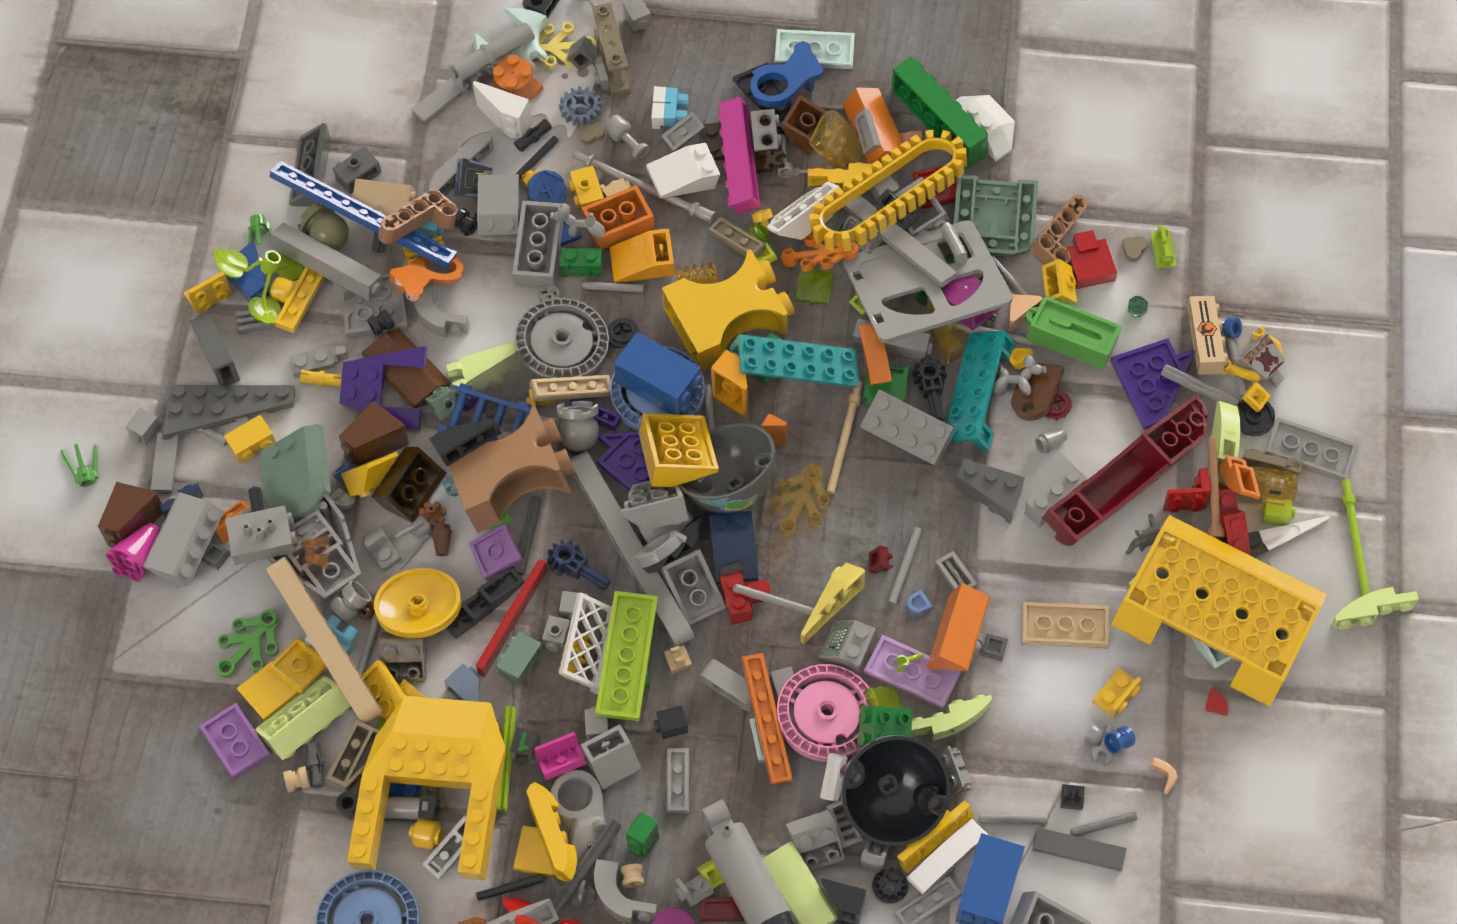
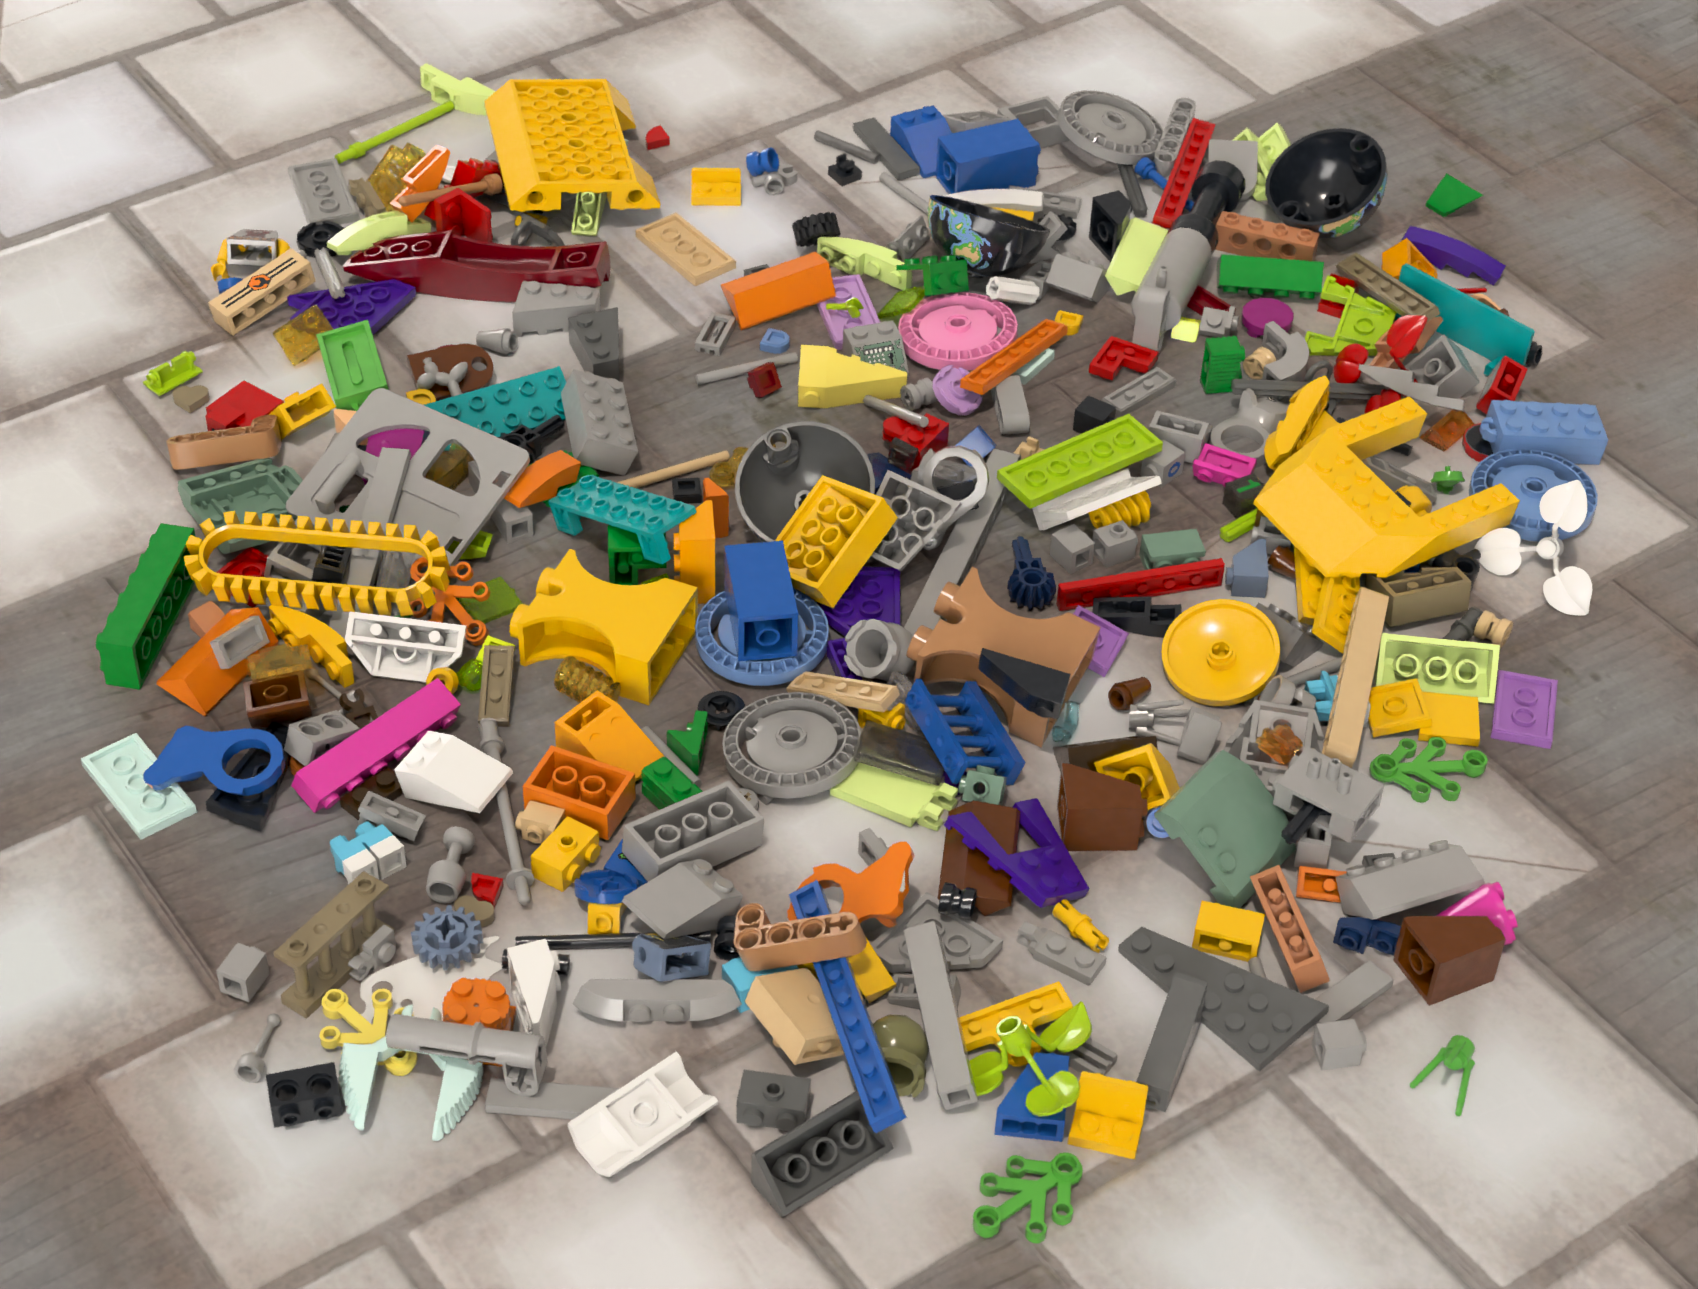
camera: 135 degrees left, 20 degrees down
(210, 235) = (1029, 1192): none -> bright green plant
(219, 461) = (1290, 929): none -> nougat brick
(258, 226) = (961, 1143): bright green plant -> none
(310, 868) = (1567, 509): none -> white plant
(389, 257) = (871, 974): none -> yellow slope
(398, 115) = (639, 1117): none -> white piece
(428, 884) = (1447, 479): none -> bright green hat
(433, 513) = (1111, 724): dark orange plant -> none
(582, 53) = (364, 978): dark grey brick -> none
(592, 226) = (642, 794): light grey piece -> none
(602, 149) = (486, 887): none -> red tile
(606, 294) = (690, 743): none -> green slope
(710, 631) = (977, 440): none -> panel
(719, 788) = (1122, 353): none -> red plate
(774, 655) = (950, 395): none -> lavender tile
(783, 799) = (1072, 320): none -> yellow tile
(786, 638) = (915, 395): none -> light grey wheel
(817, 447) = (687, 490): none -> black tile
(994, 120) = (108, 579): white wedge -> none
(1003, 704) = (811, 228): none -> black tyre
(1057, 876) = (918, 136): none -> blue slope
(1135, 332) = (299, 334): none -> clear yellow bracket
(1137, 306) = (268, 359): clear green tile -> none
(1166, 769) = (759, 128): light nougat hair -> none
(1256, 397) = (304, 233): yellow tile -> none

